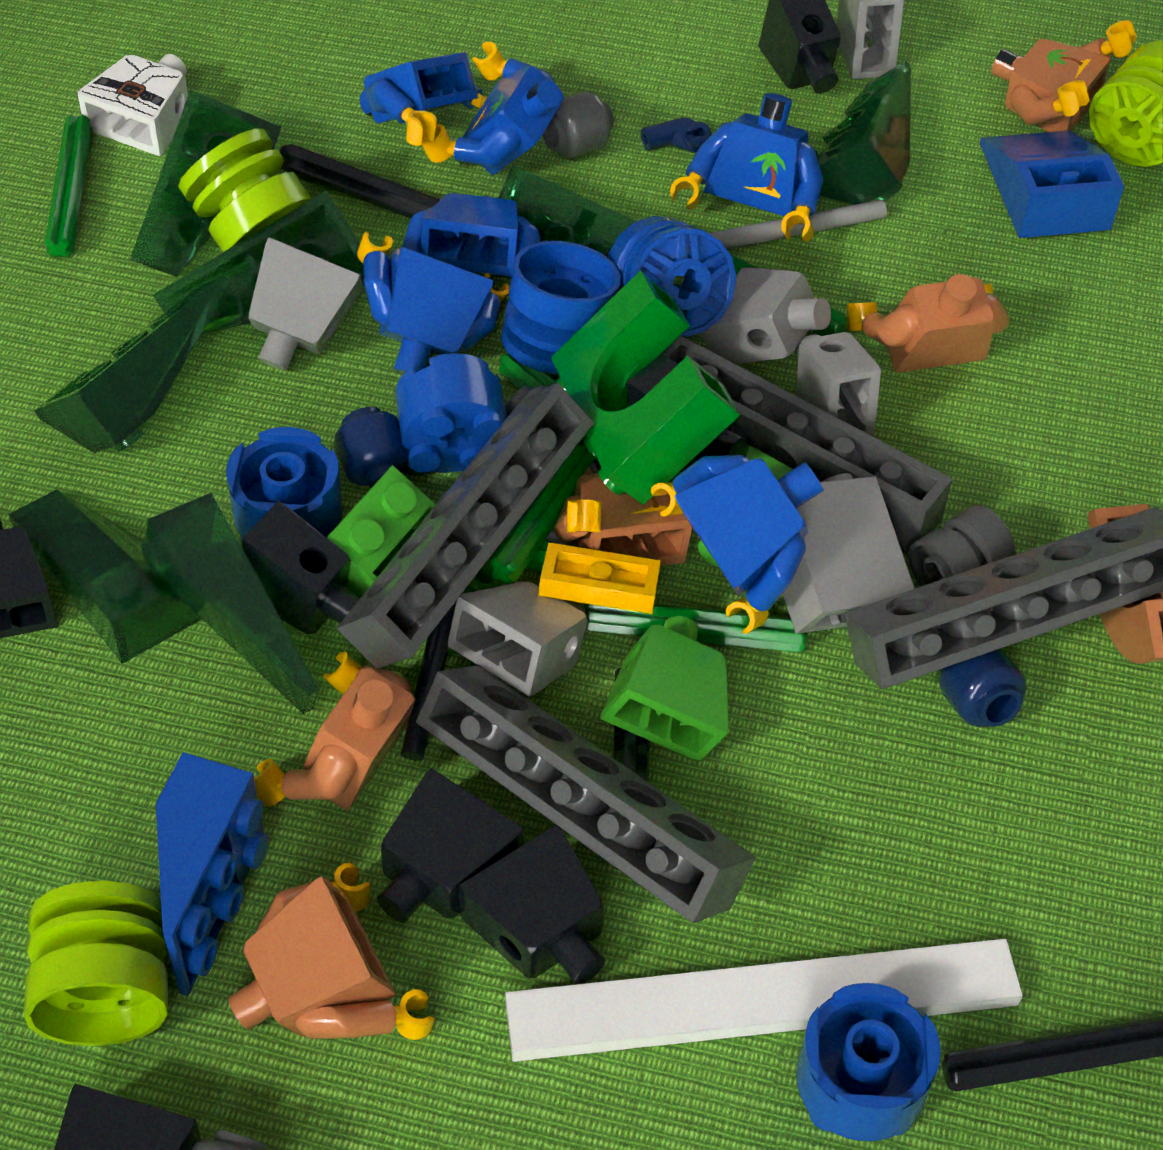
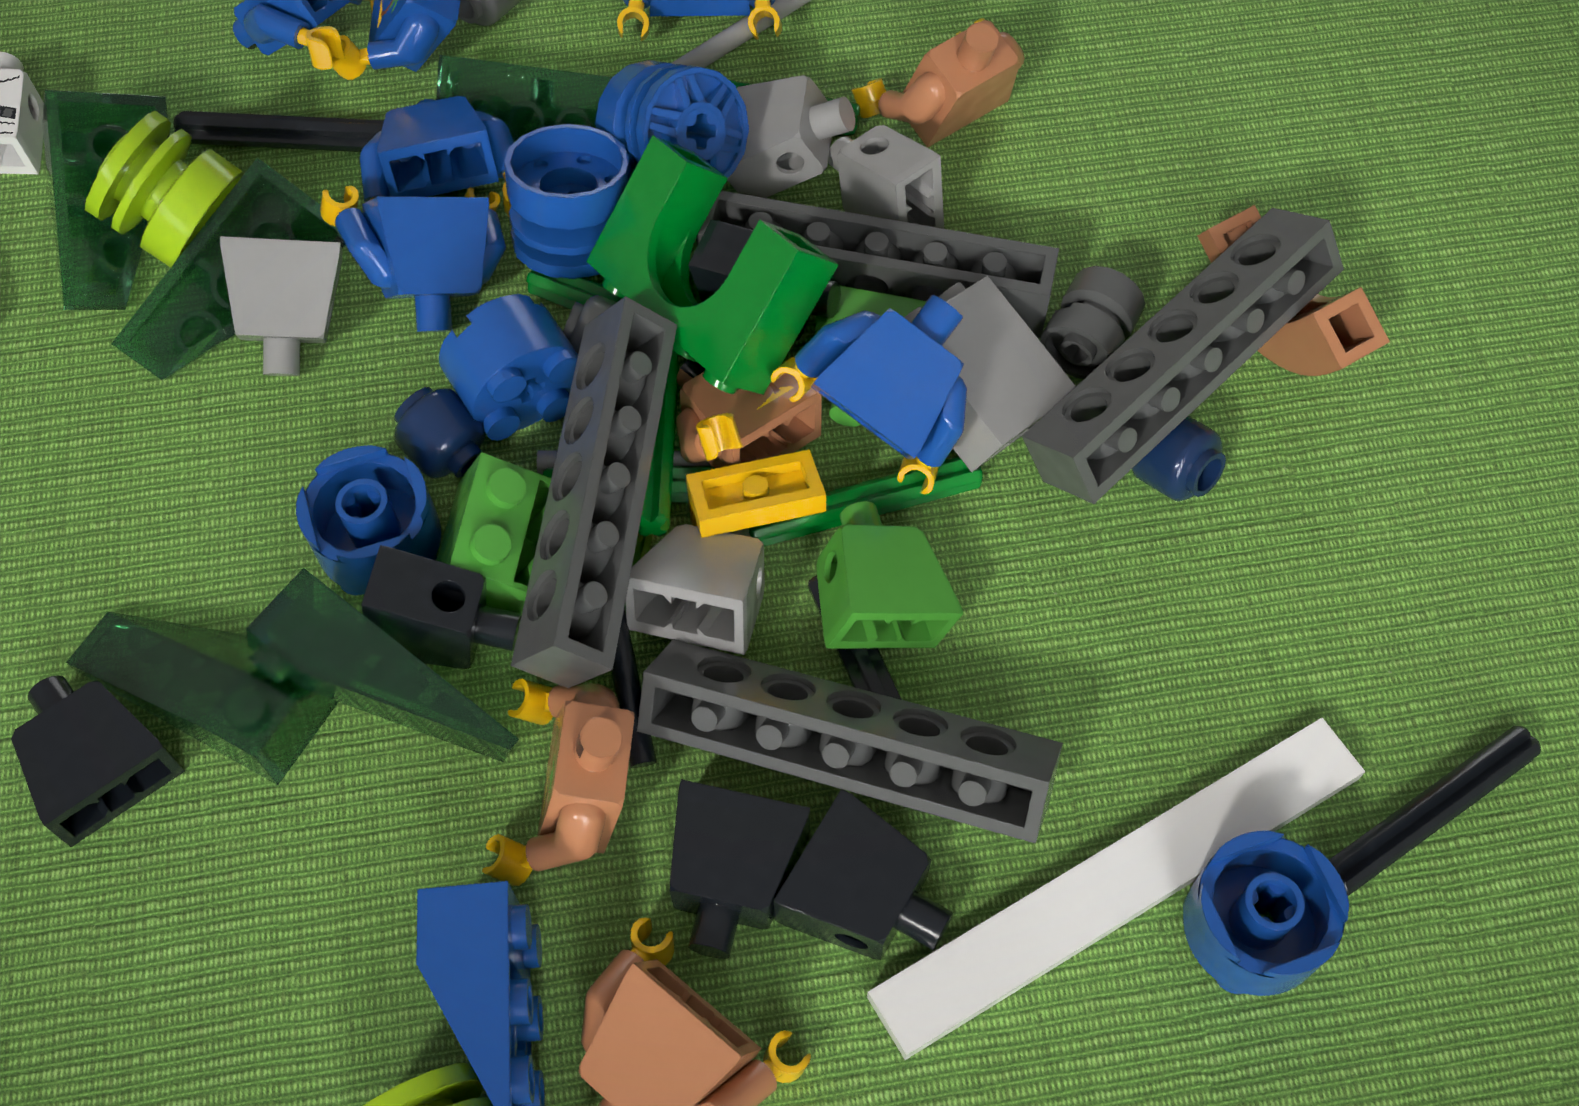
camera: 20 degrees left, 10 degrees up
(116, 398) = (132, 474): clear green wedge -> none

